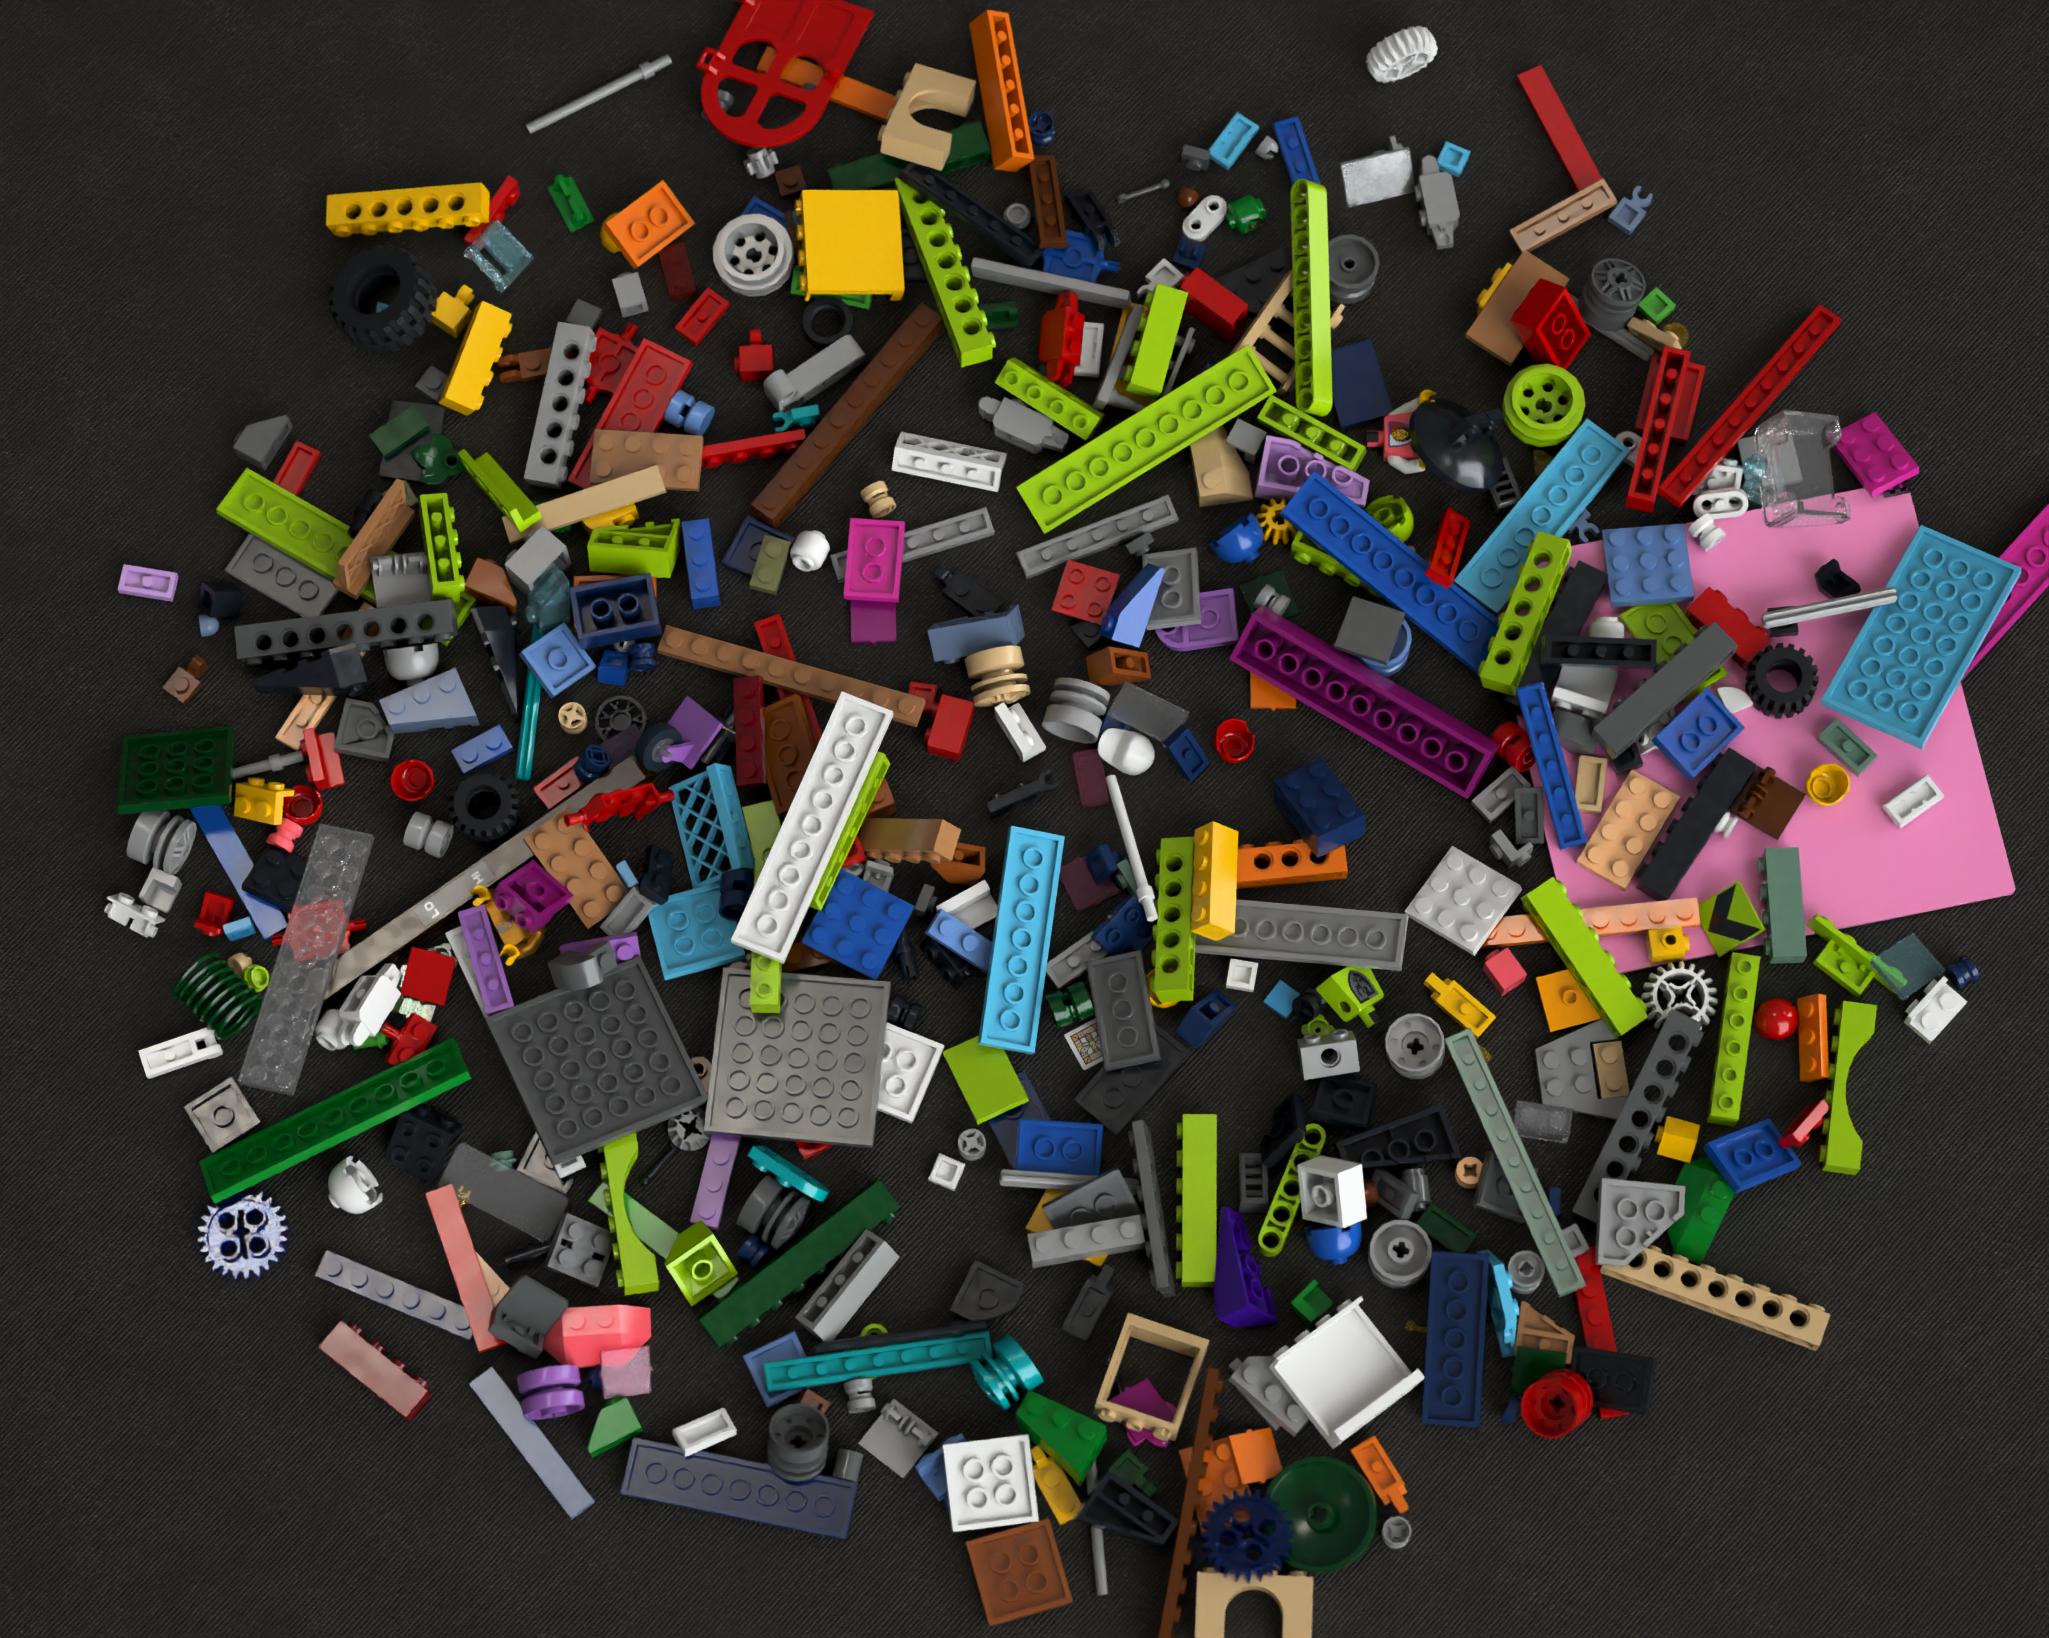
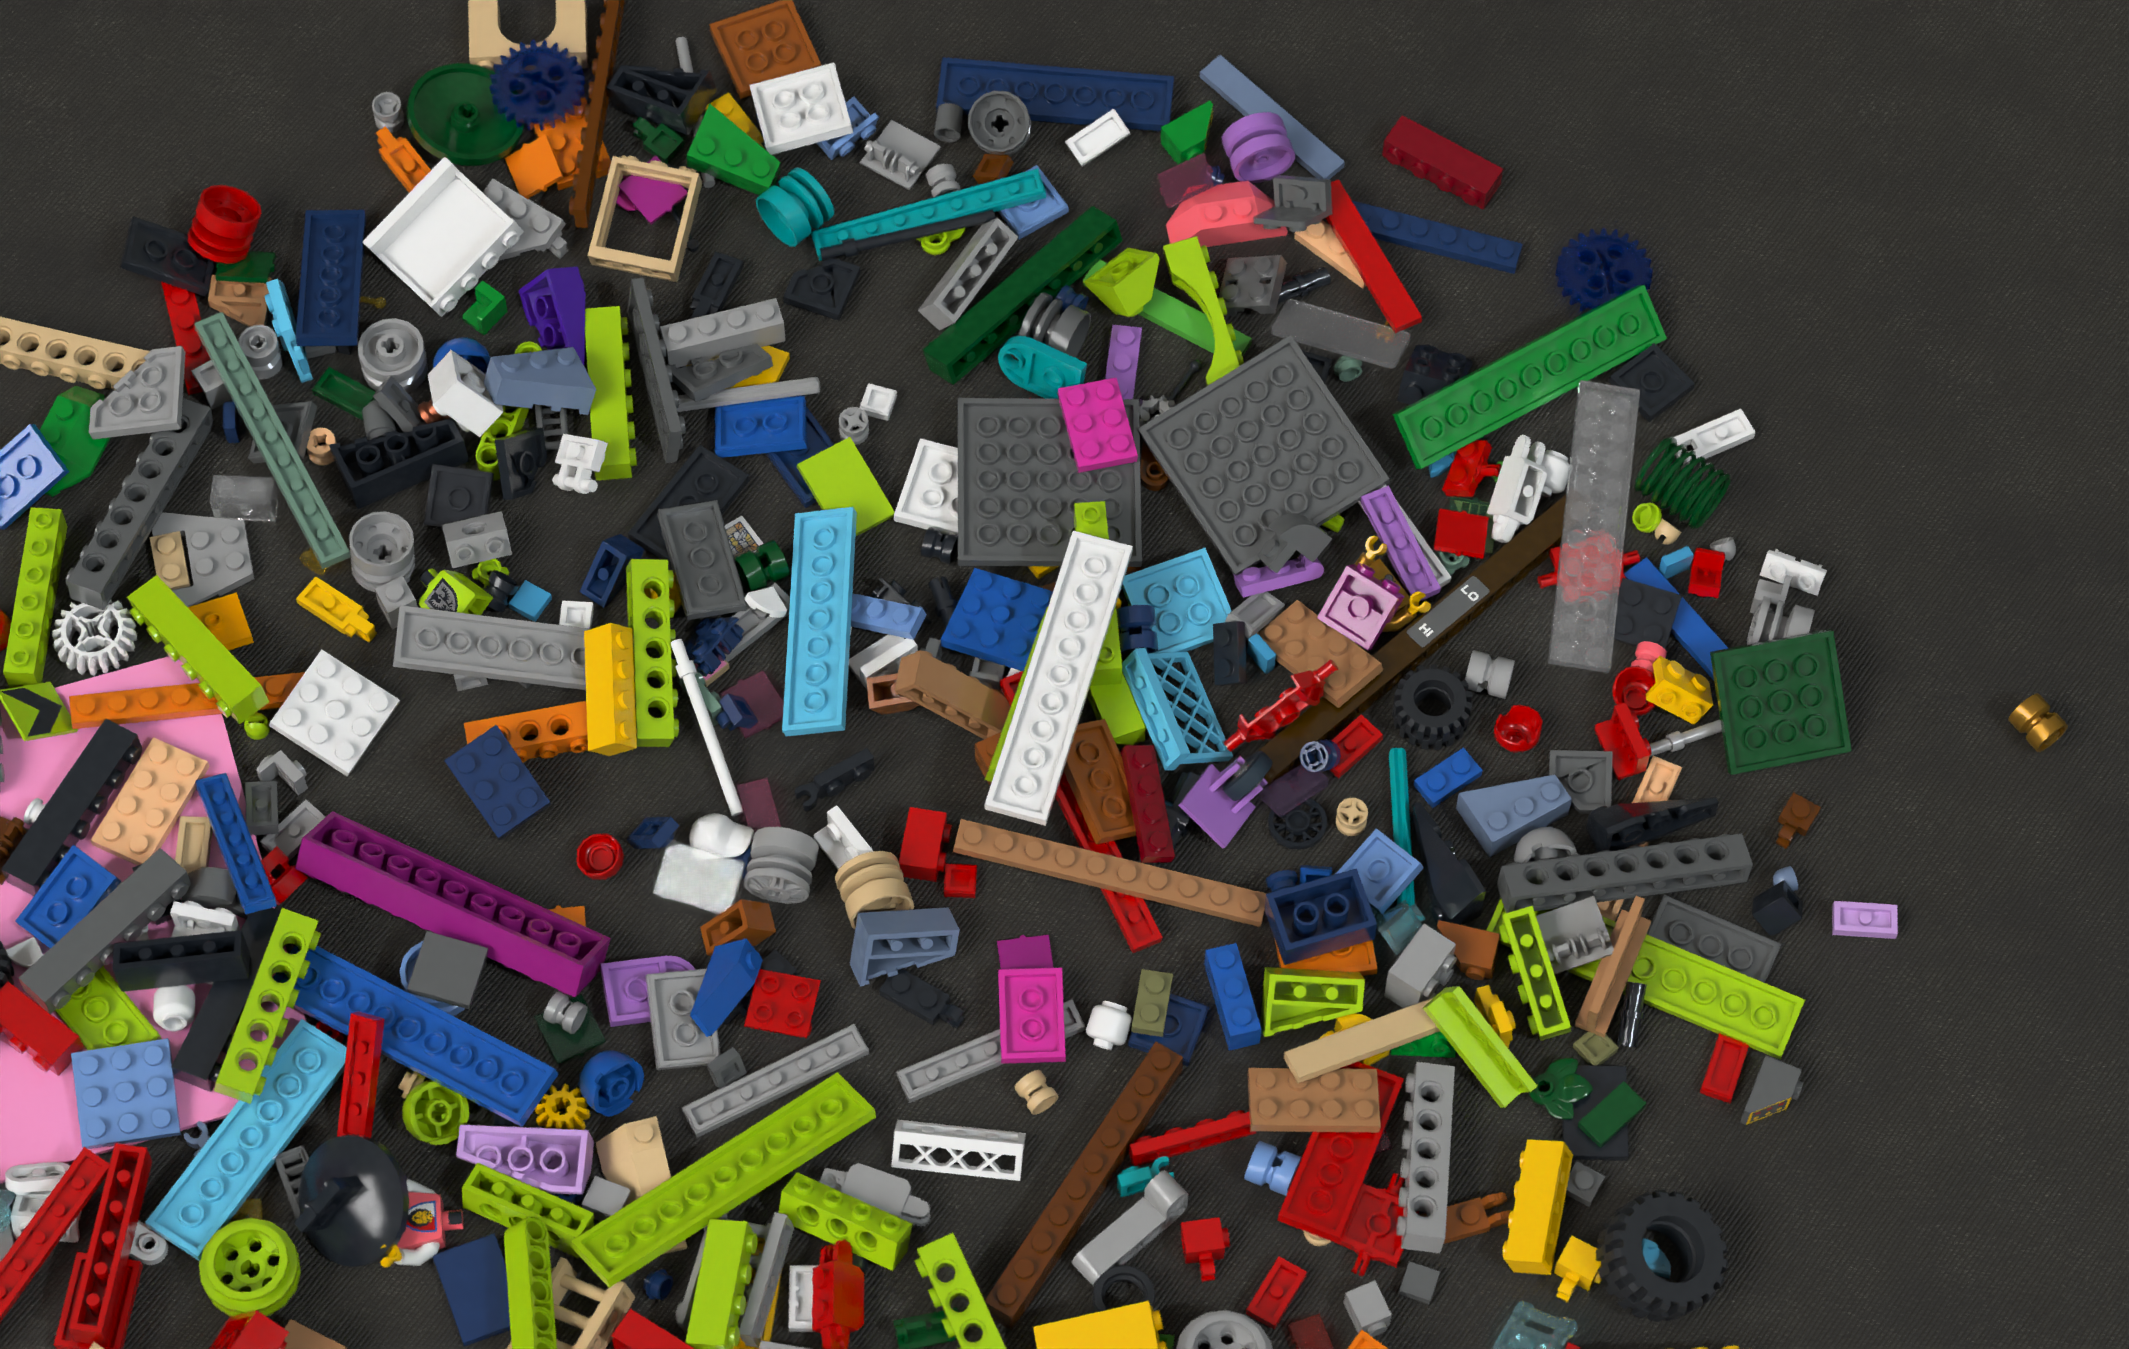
camera: 170 degrees right, 10 degrees down
(197, 942) = (1725, 545): none -> light grey hinge
(352, 1187) = (1496, 321): white cylinder -> none
(479, 510) = (1495, 1013): none -> yellow plate
(745, 1102) = (1097, 425): none -> dark pink plate
(1067, 962) = (766, 601): none -> white tile
(1229, 1118) = (579, 453): none -> white plate
(1258, 1192) = (540, 378): none -> sand blue wedge
(1403, 1000) = (393, 595): none -> light grey brick
(1504, 970) = (287, 646): coral brick -> none
(1511, 1410) = (272, 229): dark blue tile -> none
(1666, 944) = (106, 676): yellow brick -> none
(1677, 1139) = (96, 492): yellow brick -> none
(1706, 532) = (55, 1137): white wheel -> none

